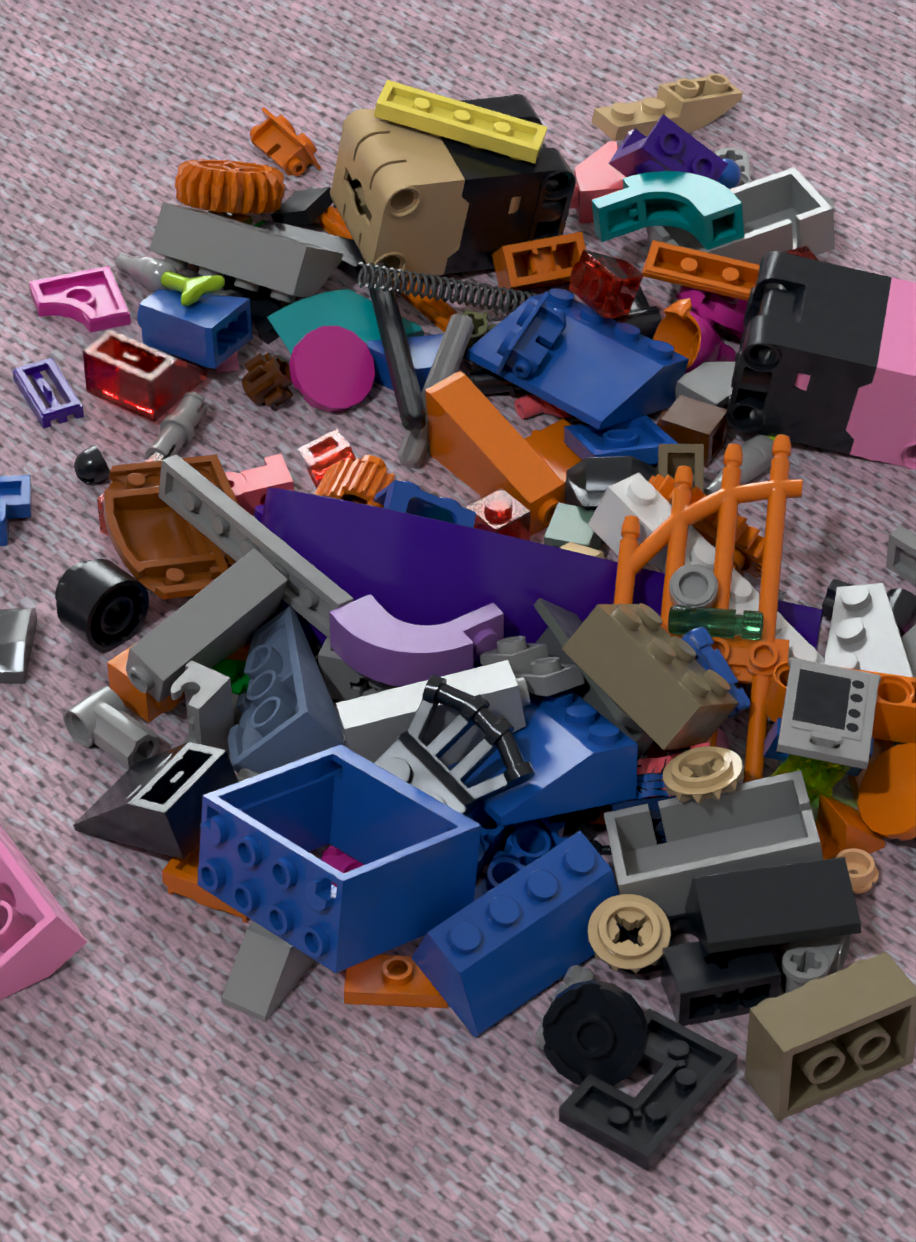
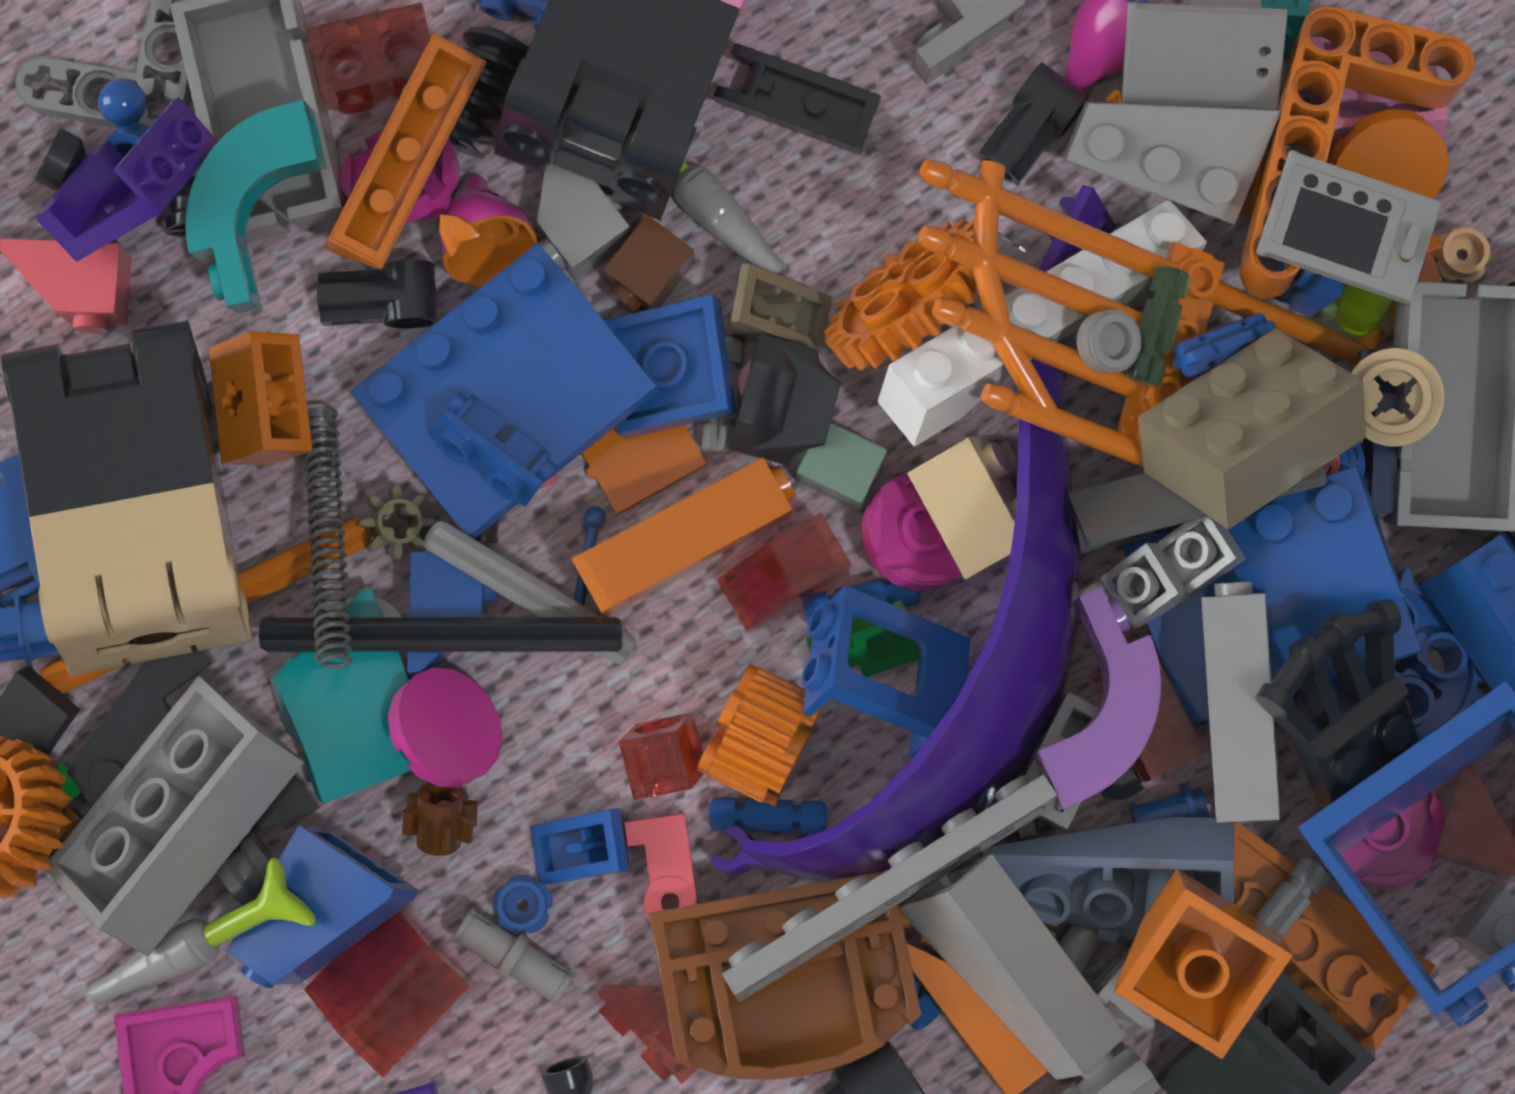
camera: 80 degrees left, 40 degrees up
(214, 431) = (506, 901): none -> blue plate
(227, 699) = (1201, 964): none -> orange slope
(254, 446) = (581, 847): none -> blue slope
(460, 121) = (99, 468): light yellow plate -> none
(605, 283) = (391, 320): clear red slope -> none
(846, 496) = (801, 100): none -> black hinge

